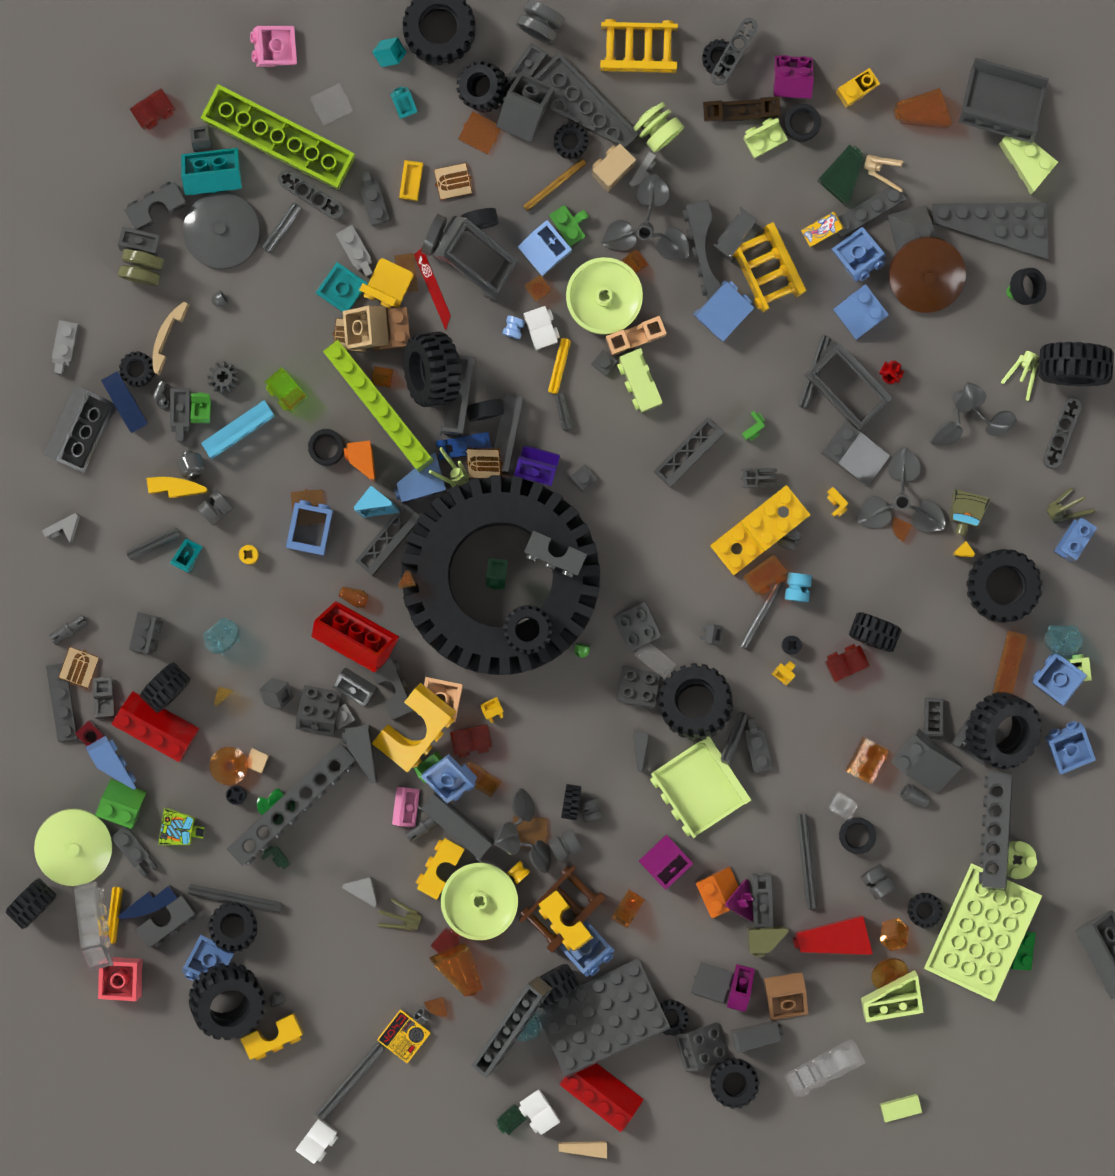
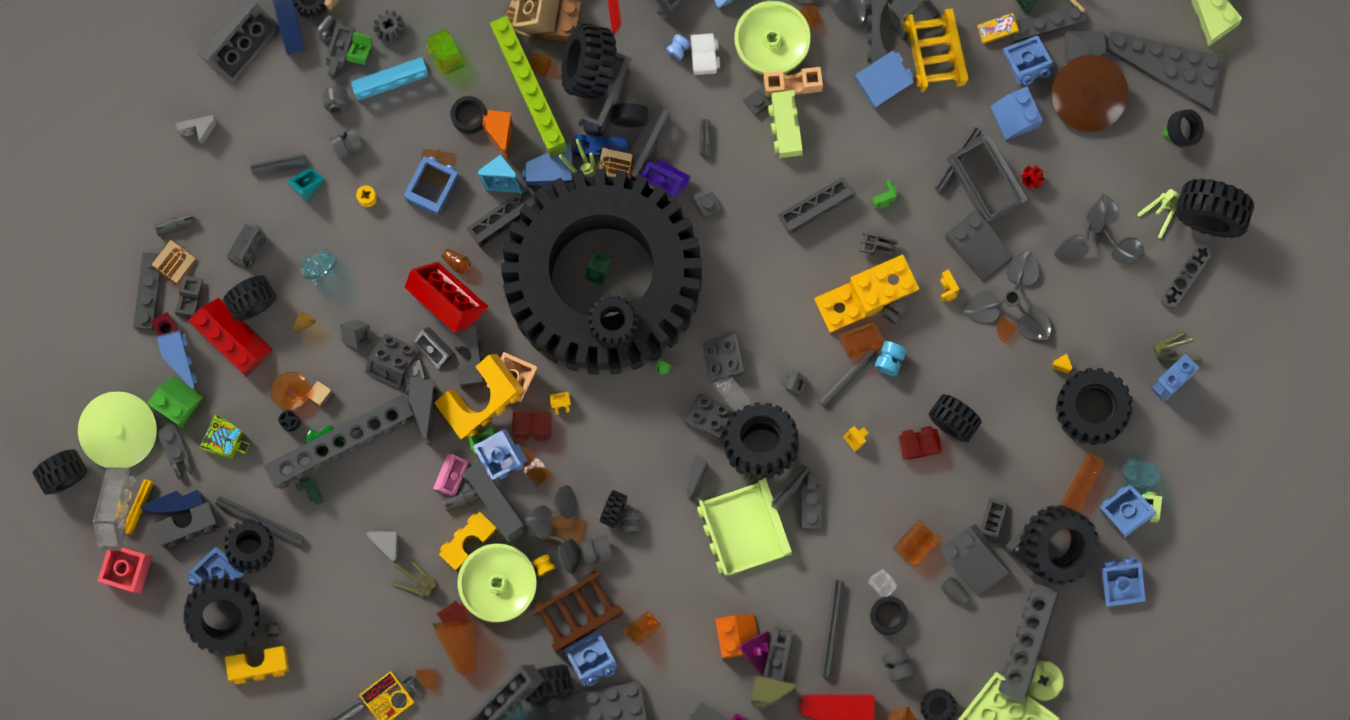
camera: 25 degrees right, 10 degrees down
(174, 486) = (314, 116): yellow slope -> none
(407, 580) = (508, 247): clear orange slope -> none
(537, 288) = (710, 17): clear orange plate -> none
(538, 549) = (671, 269): dark grey arch -> none
(553, 908) = (582, 637): yellow arch -> none
(559, 366) = (712, 94): yellow axle -> none
(665, 862) = (691, 592): magenta slope -> none
(789, 647) = (871, 416): black wheel -> none
(967, 510) = (1075, 326): olive torso -> none

